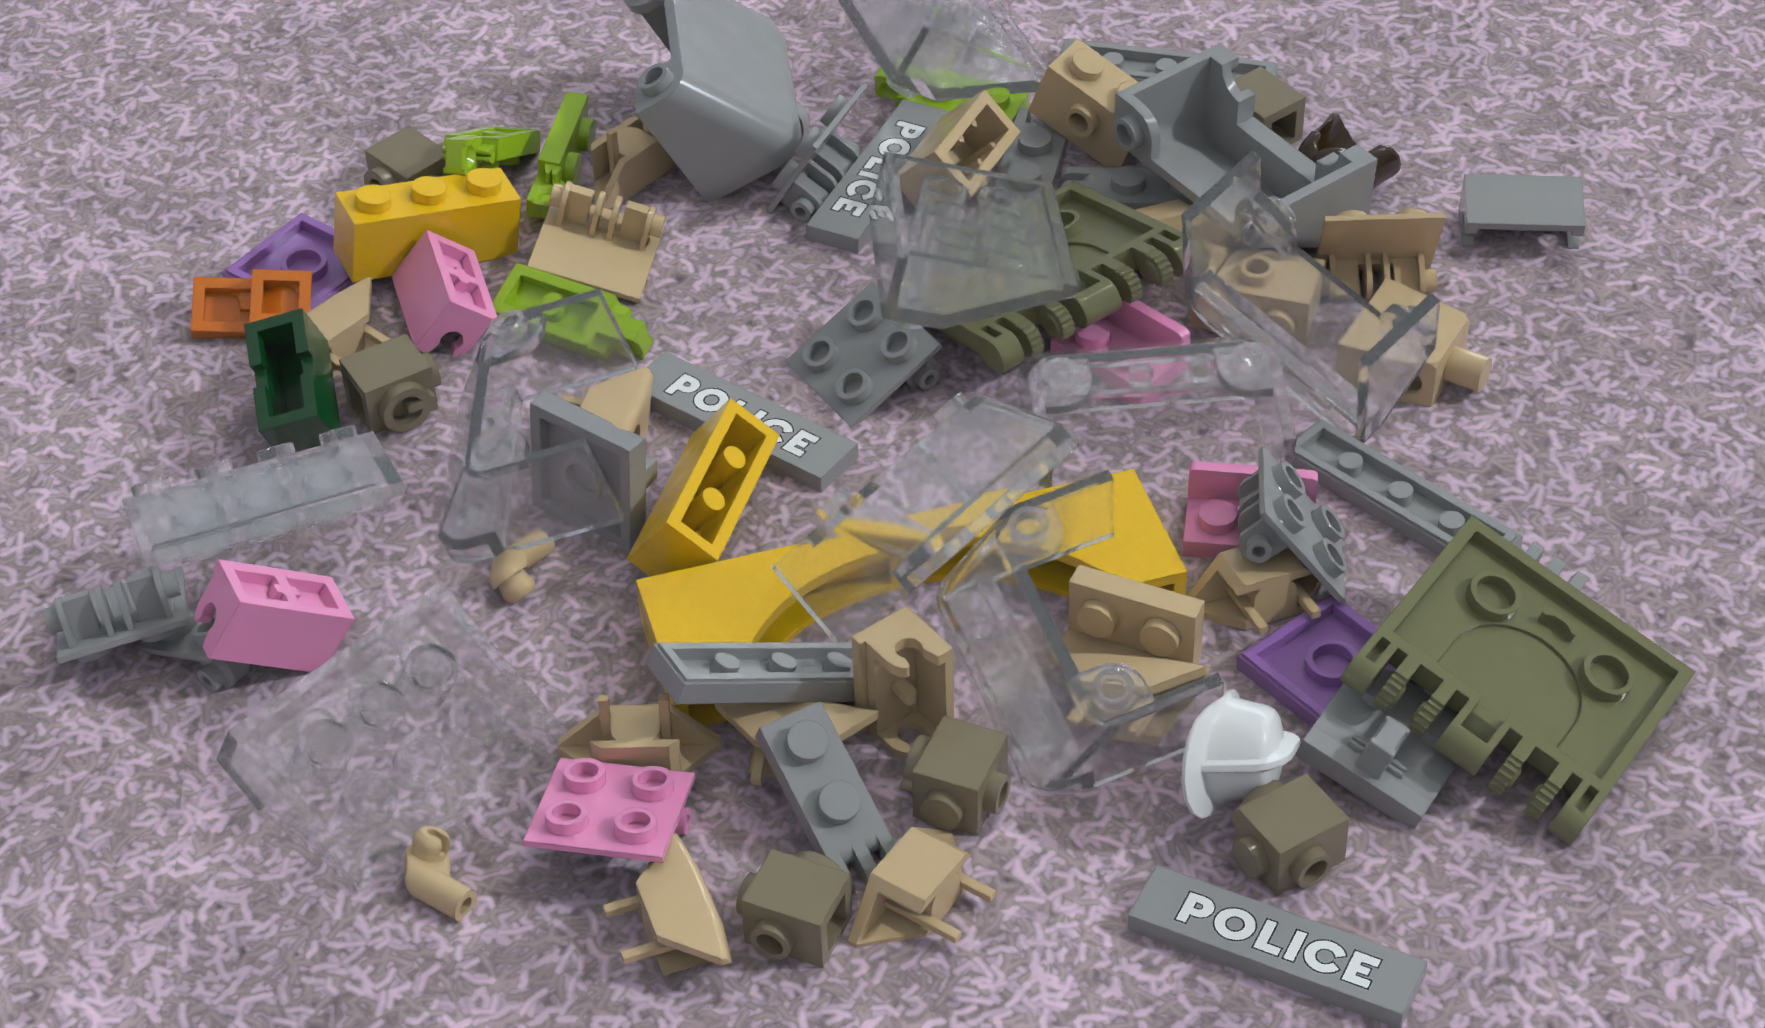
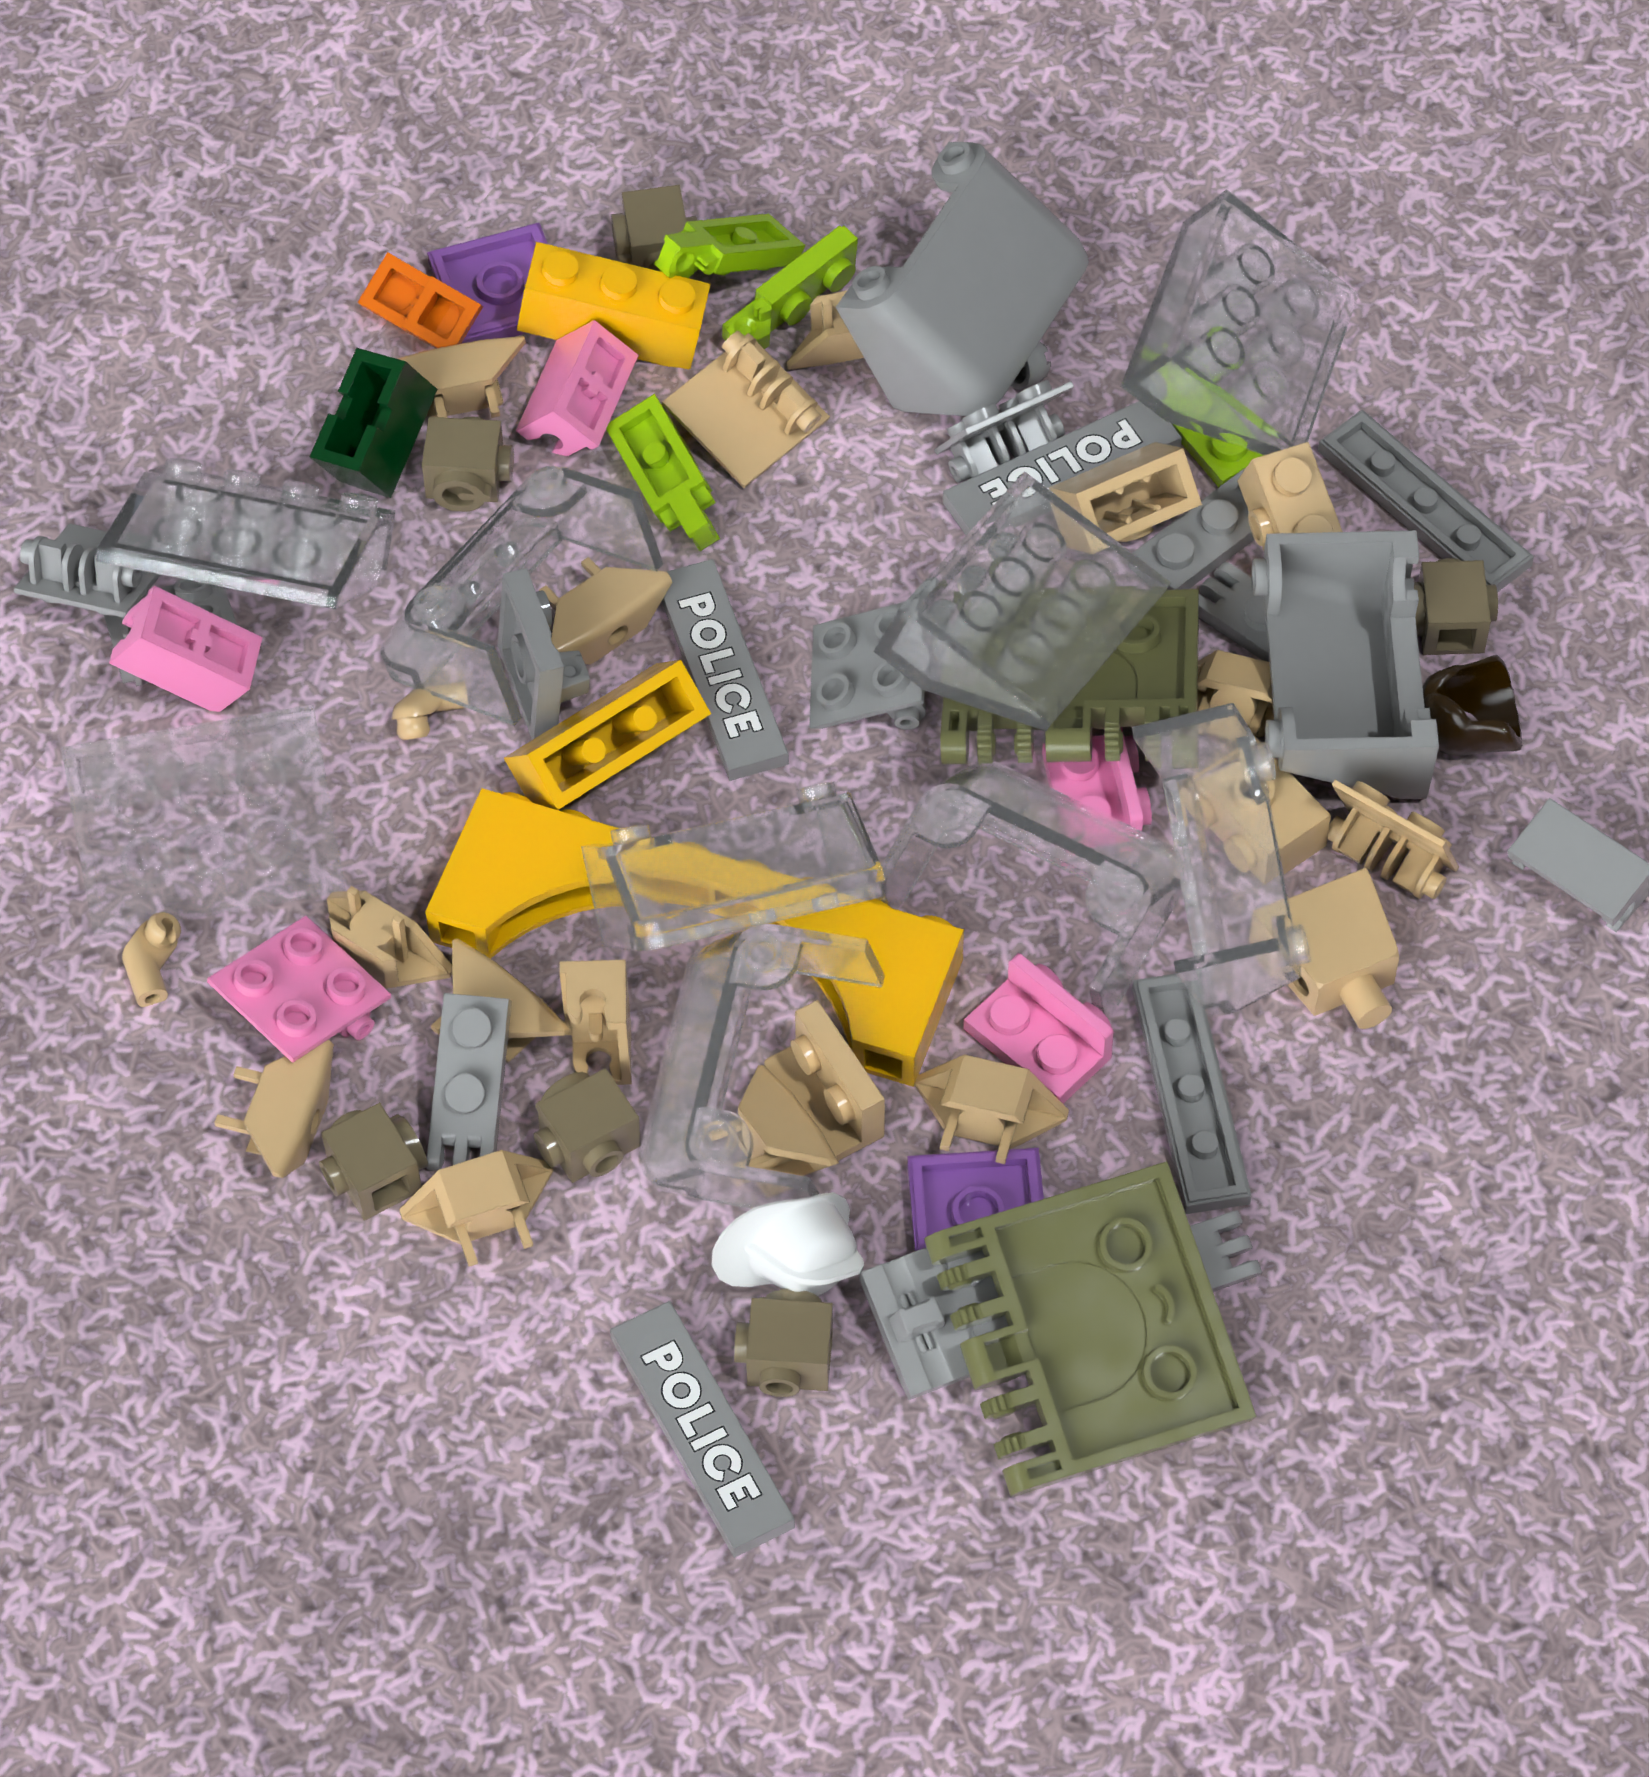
camera: 35 degrees right, 15 degrees up
(754, 671) = (490, 937): light grey tile -> none
(1280, 515) = (1044, 1071): light grey hinge -> none

